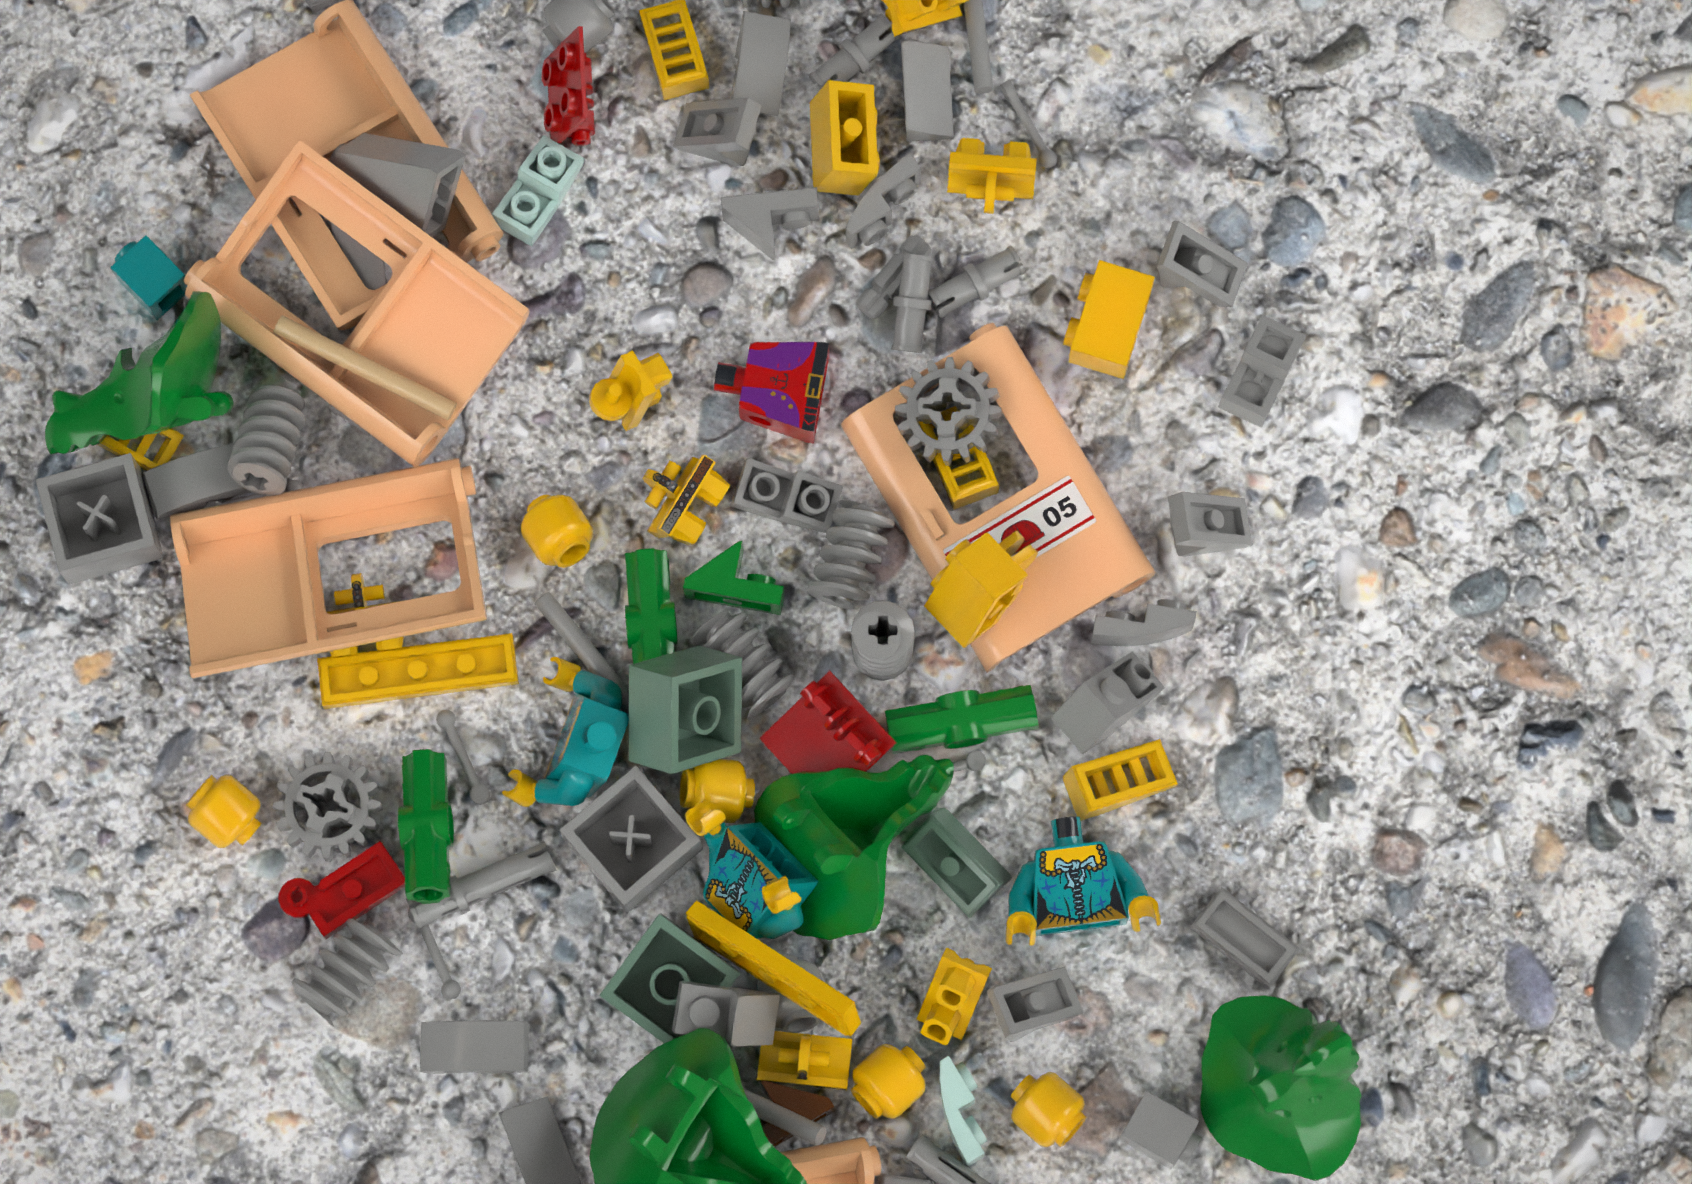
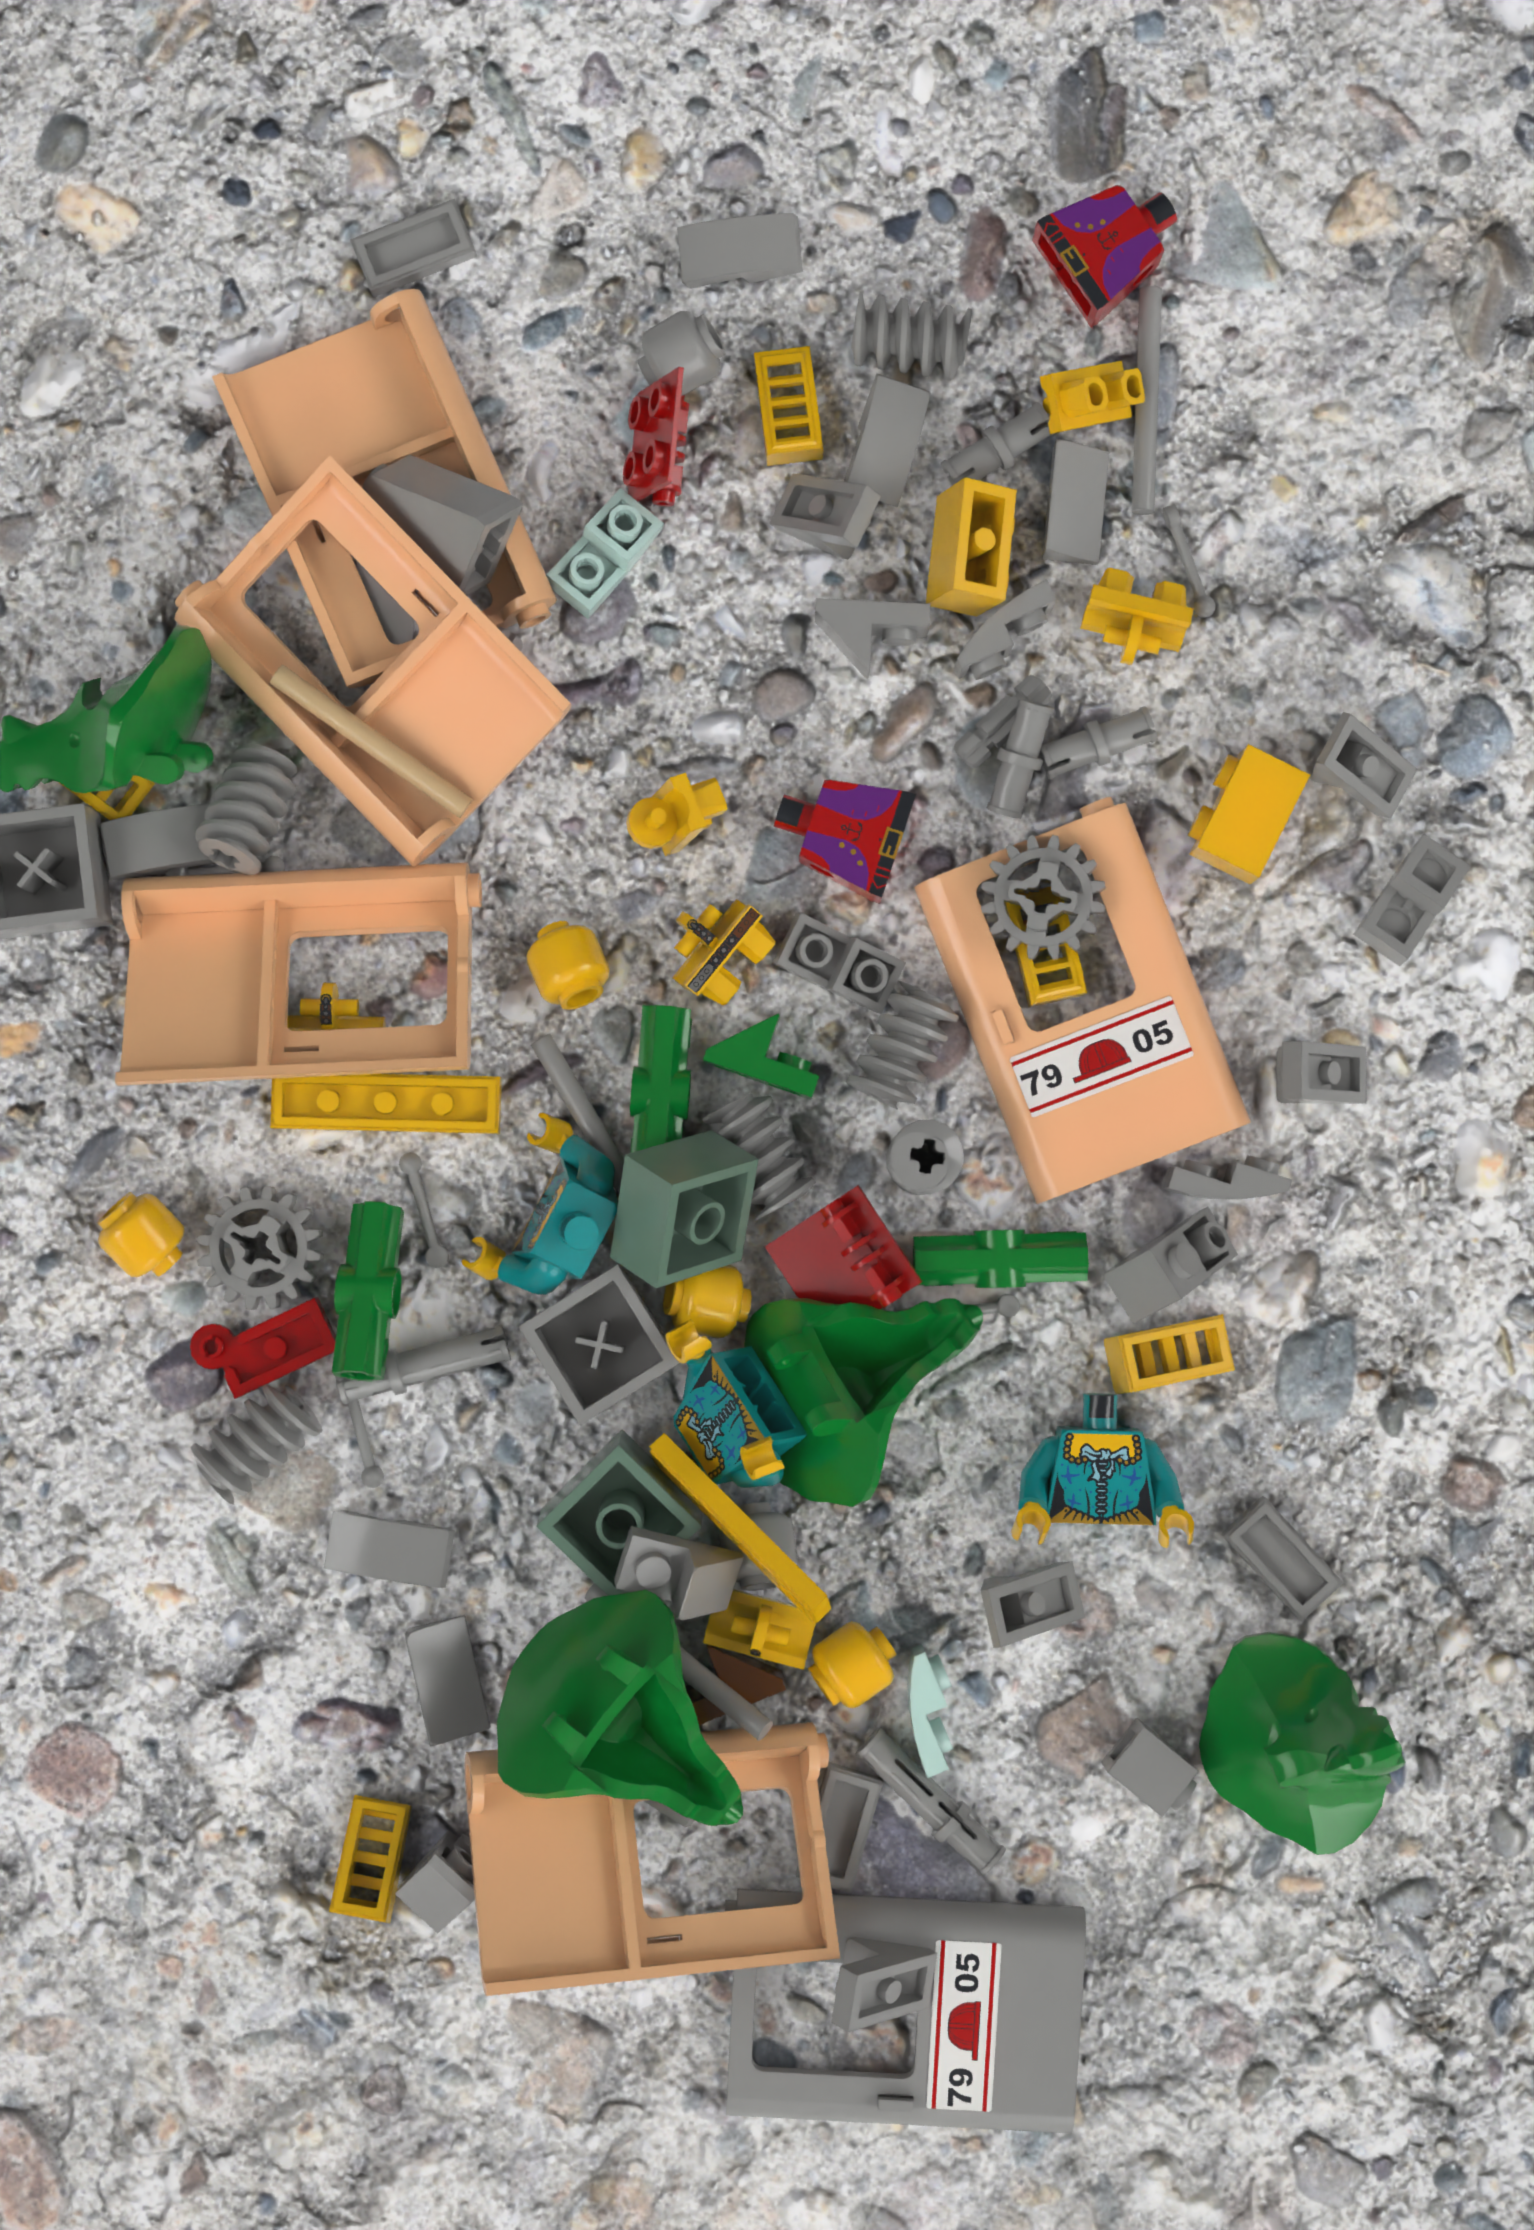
camera: 10 degrees right, 10 degrees up
(149, 276) = (137, 588): teal brick -> none
(952, 997) = (939, 1583): yellow hips -> none
(956, 861) = (968, 1419): sand green slope -> none
(978, 585) = (1045, 1115): yellow brick -> none
(1047, 1109) = (1027, 1725): yellow head -> none

